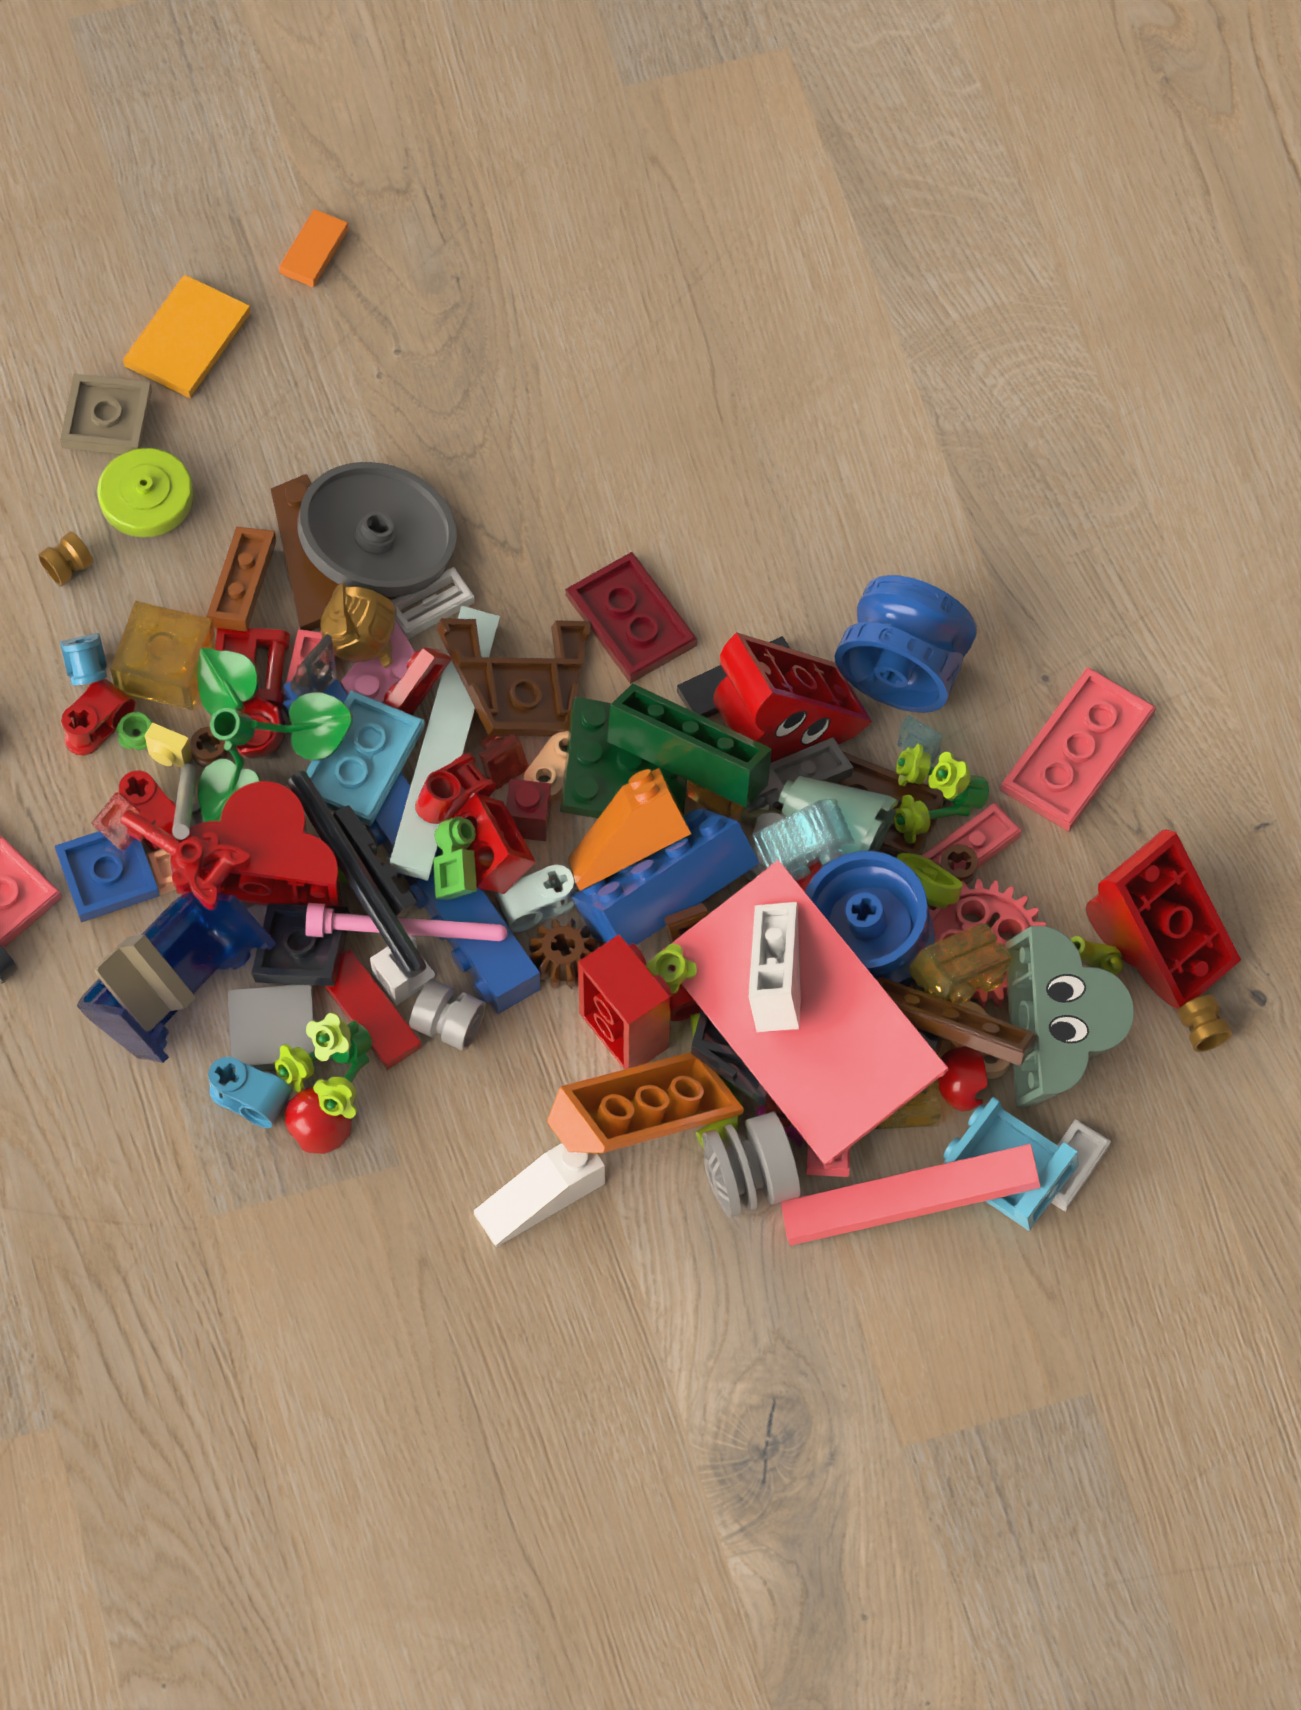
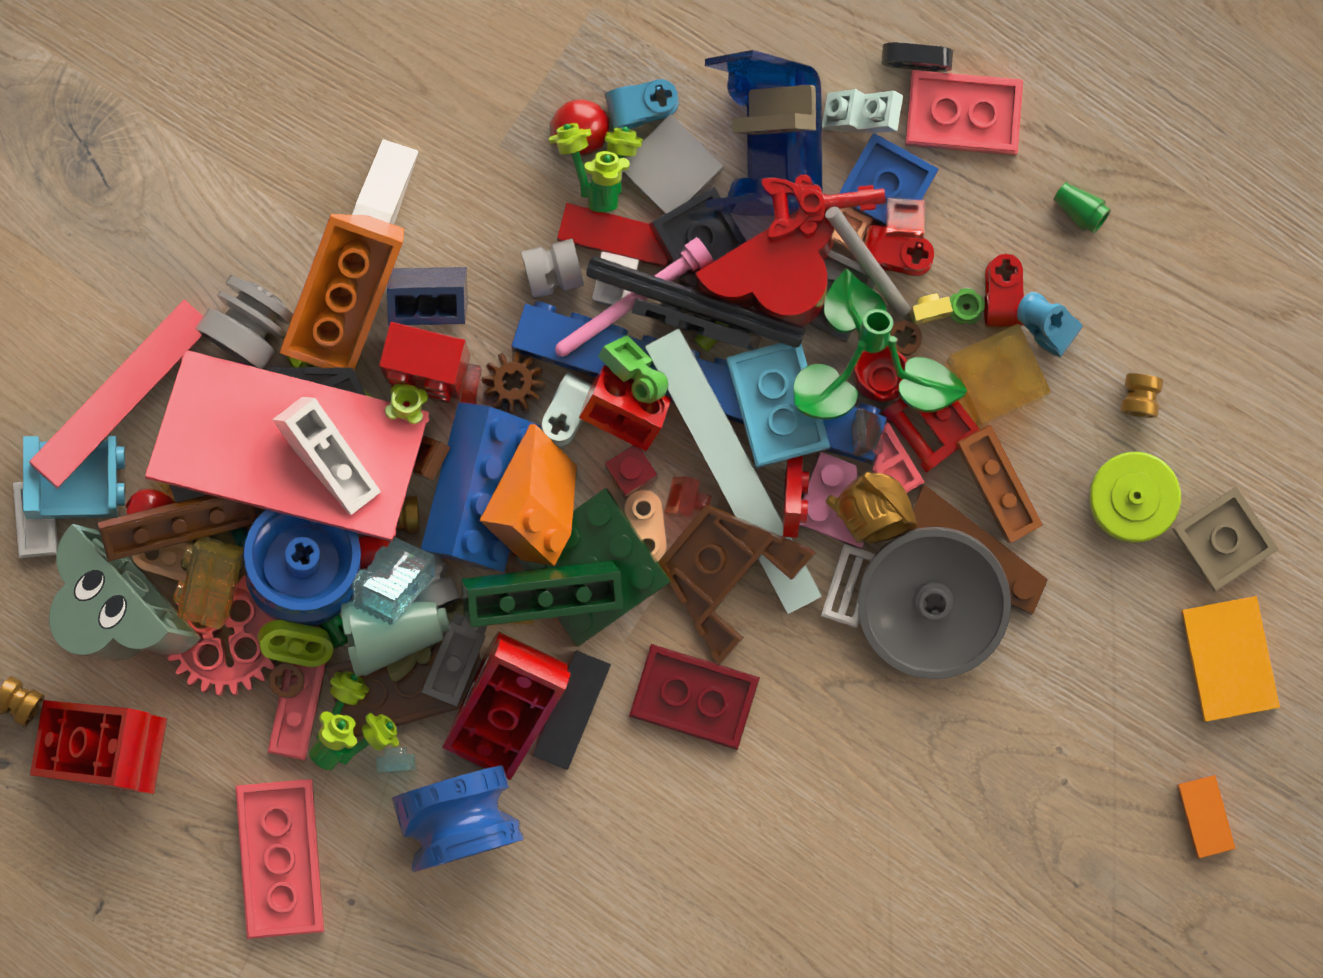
camera: 135 degrees right, 20 degrees up
(70, 937) = (862, 112): none -> light aqua slope
(450, 789) = (683, 430): red piece -> none
(570, 1048) = (427, 296): none -> dark blue brick
(1099, 955) = (141, 694): lime arm -> none

